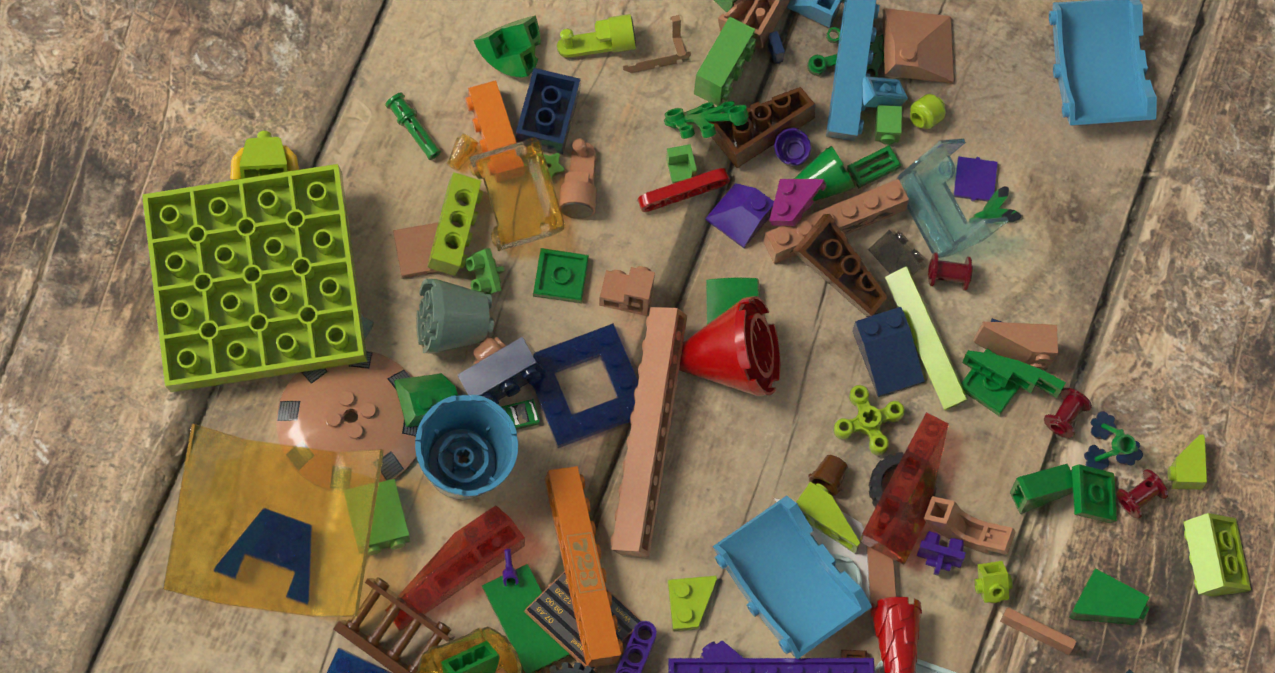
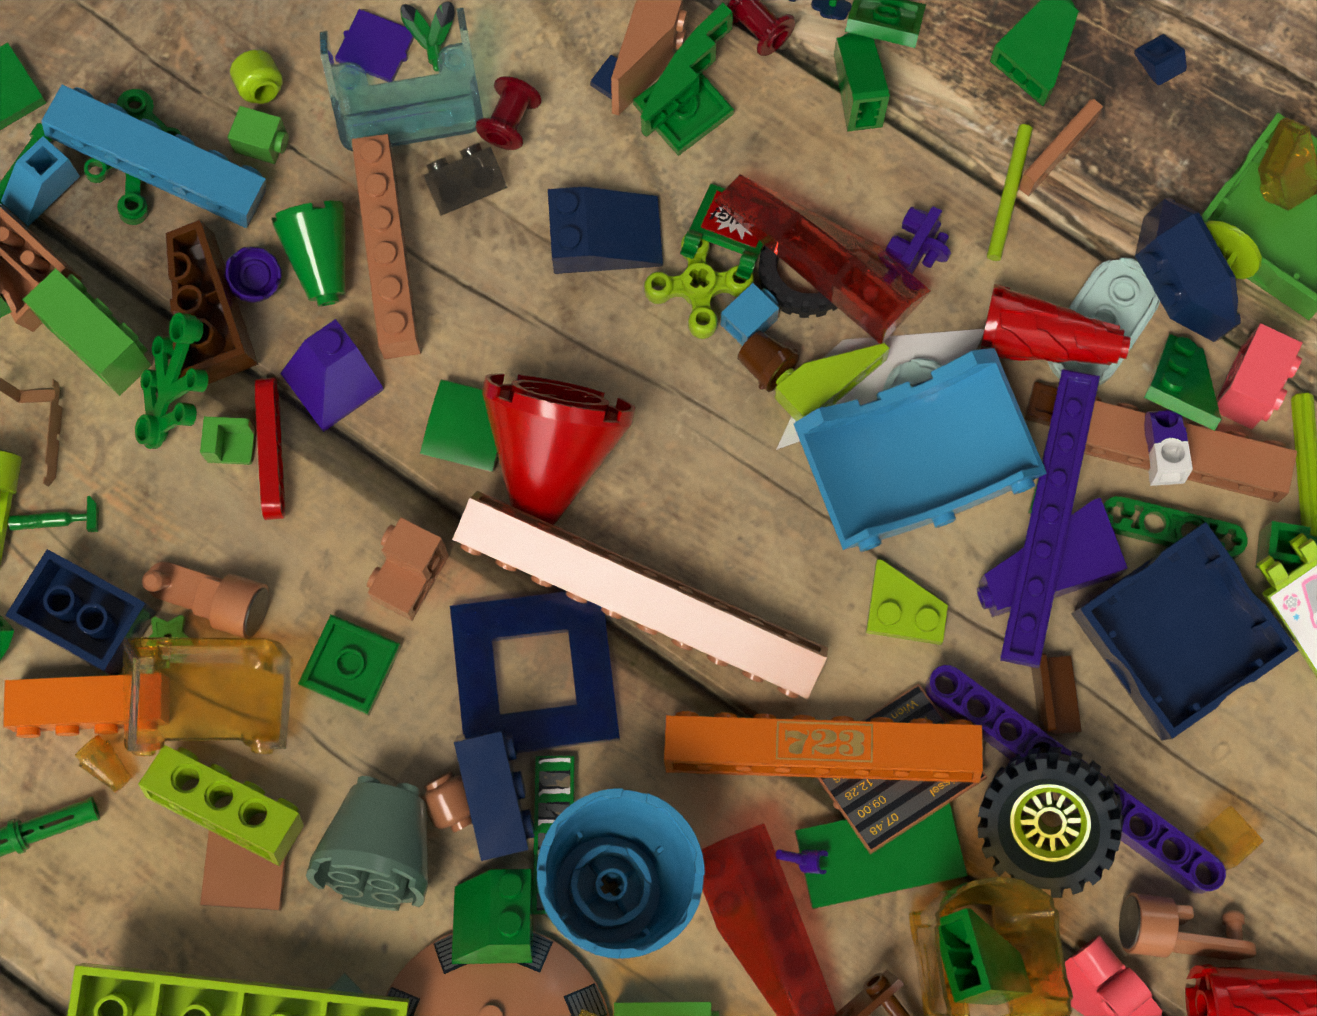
camera: 70 degrees left, 5 degrees up
(486, 272) = (315, 776): bright green hips -> none
(604, 81) = (56, 519): none -> green piece
(775, 47) = (87, 256): dark blue tile -> none
(793, 199) = (340, 289): magenta wing -> none
(834, 259) = (455, 256): reddish brown wedge -> none
(858, 457) = (749, 313): none -> dark azure brick
(878, 174) = (308, 145): green tile -> none
(880, 576) = (935, 334): nougat tile -> none
(882, 92) = (209, 125): dark azure slope -> none
(908, 421) = (720, 228): none -> green flag
(917, 45) = (150, 62): nougat slope -> none
(926, 338) = (602, 171): lime tile -> none
(953, 522) = (885, 207): nougat arch -> none
(963, 606) = (1009, 192): none -> lime bar
(993, 582) = (980, 183): lime brick -> none

